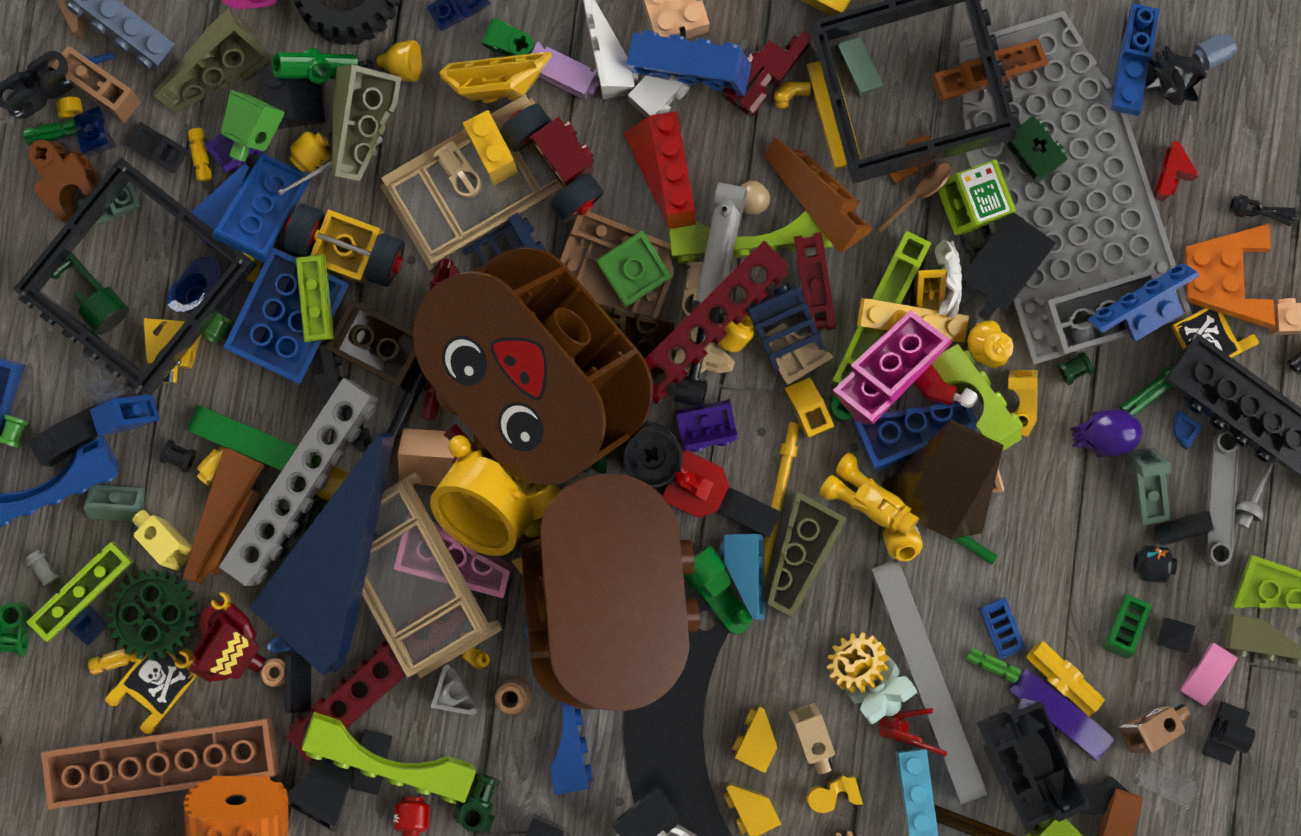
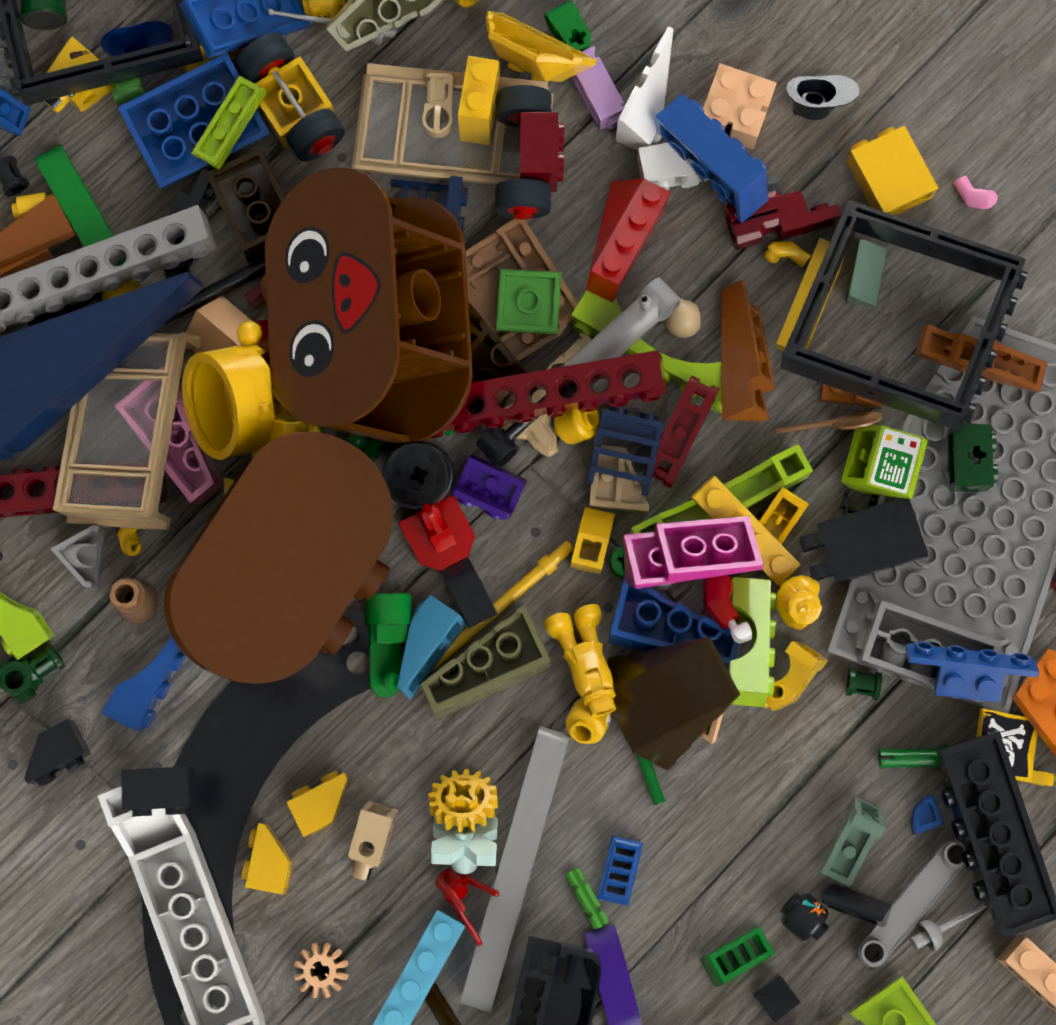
camera: 35 degrees right, 5 degrees down
(824, 799) = (339, 902): yellow leg -> none
(949, 259) = (818, 501): white piece -> none
(1065, 678) = (643, 960): yellow piece -> none
(1110, 434) = (850, 764): dark purple helmet -> none

